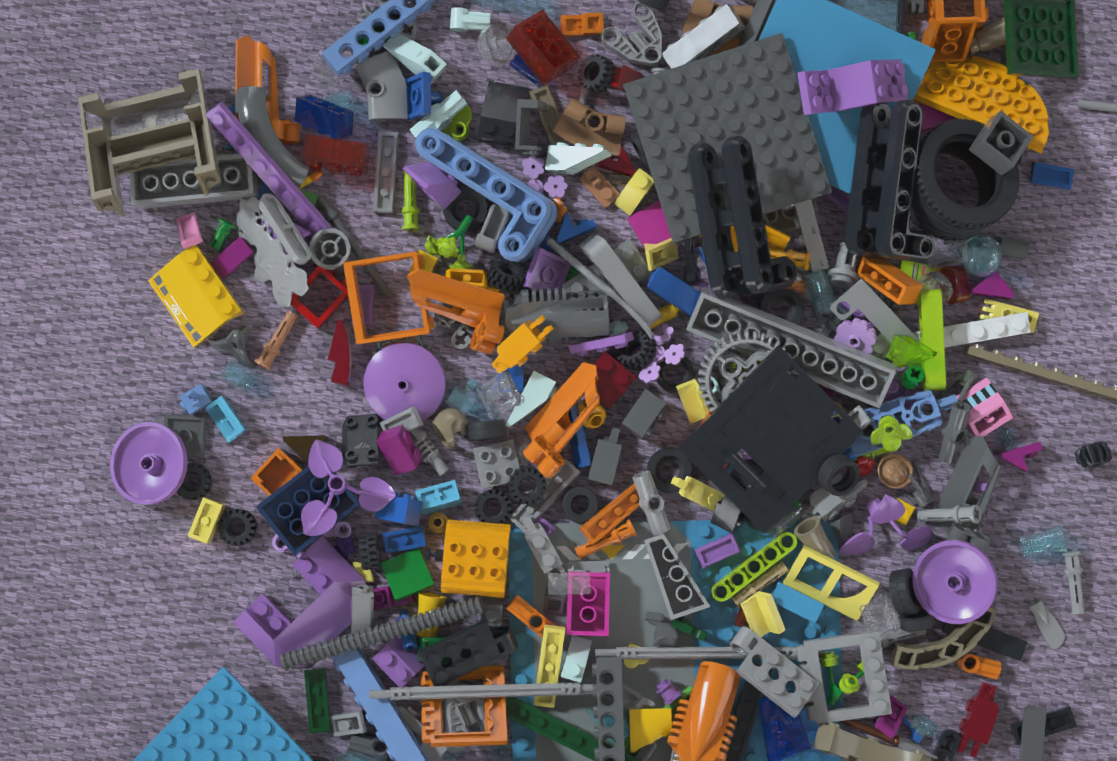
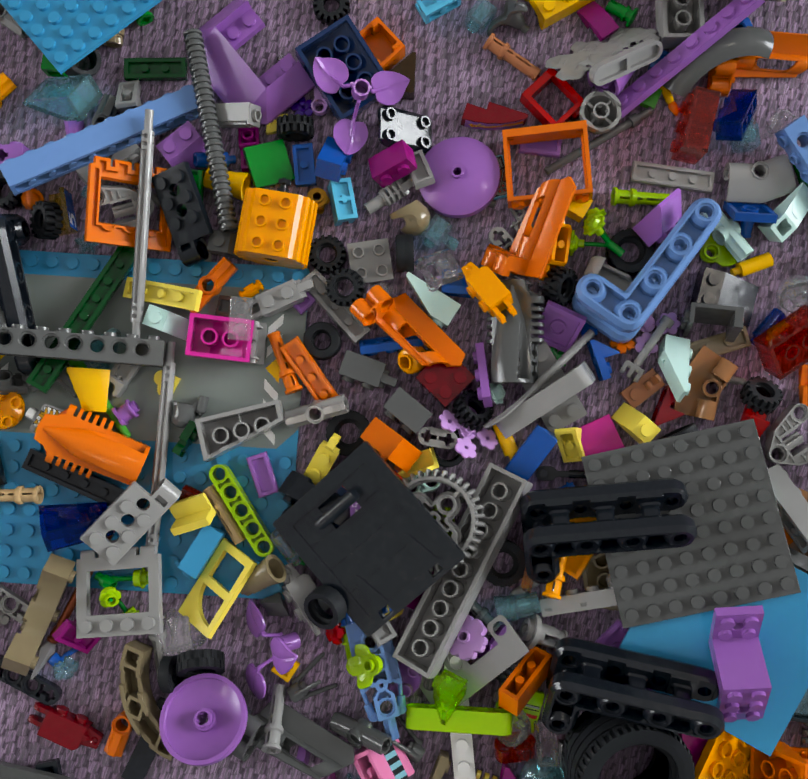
camera: 90 degrees right, 0 degrees up
(468, 88) = (752, 265): none -> yellow cylinder
(536, 580) = (252, 289): none -> light orange piece
(578, 195) = (665, 322): none -> light grey hinge
(672, 382) = (437, 443): none -> light grey beam
(678, 427) = (391, 445): none -> orange container
(894, 471) = (326, 665): medium nougat hat -> none
(912, 377) = (421, 694): green bush -> none

